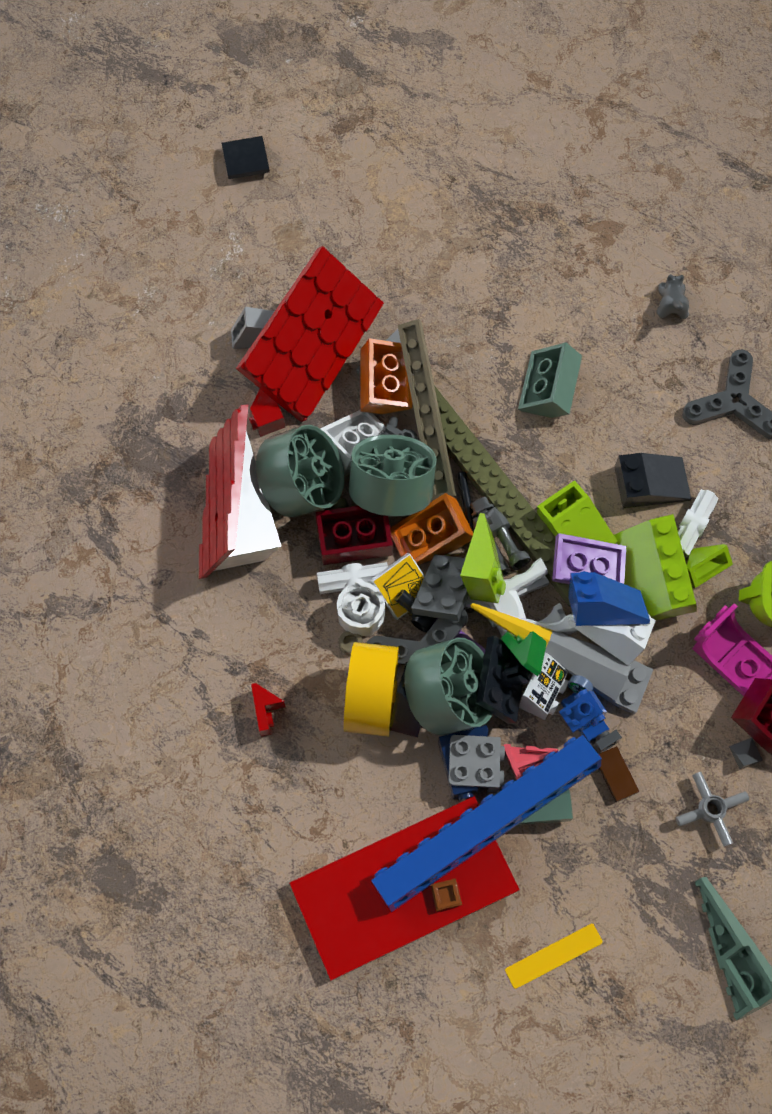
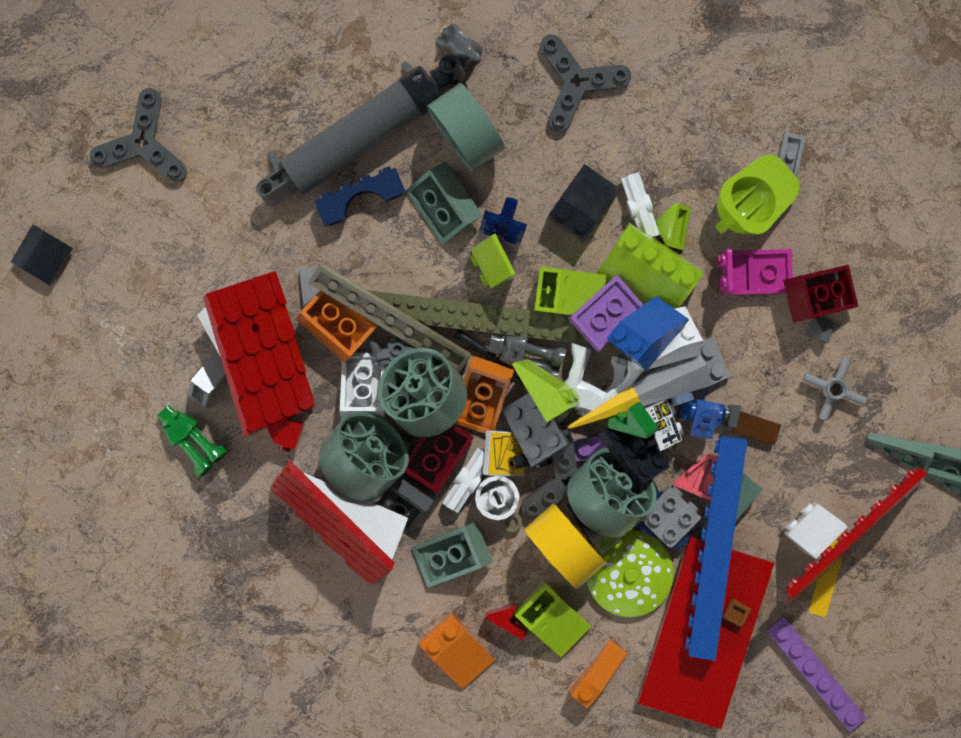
camera: 45 degrees left, 20 degrees up
(200, 342) = (179, 428): none -> green piece
(202, 688) = (456, 650): none -> orange slope
(282, 617) = (452, 554): none -> sand green slope
(284, 825) = (597, 674): none -> orange slope
(298, 545) = (408, 499): none -> dark grey slope
(298, 743) = (552, 619): none -> lime slope
(376, 153) = (127, 148): none -> dark grey piece
(396, 778) = (635, 576): none -> lime dish
(456, 1028) = (816, 673): none -> medium lavender plate
(472, 311) = (334, 206): none -> dark blue arch
(542, 447) = (492, 262): none -> lime slope
(544, 279) = (358, 131): none -> dark grey piece
(579, 431) = (504, 224): none -> clear blue plate
(580, 895) = (814, 529): none -> white slope
(612, 930) = (848, 540): none -> red tile
(622, 338) = (466, 127): none -> sand green wheel

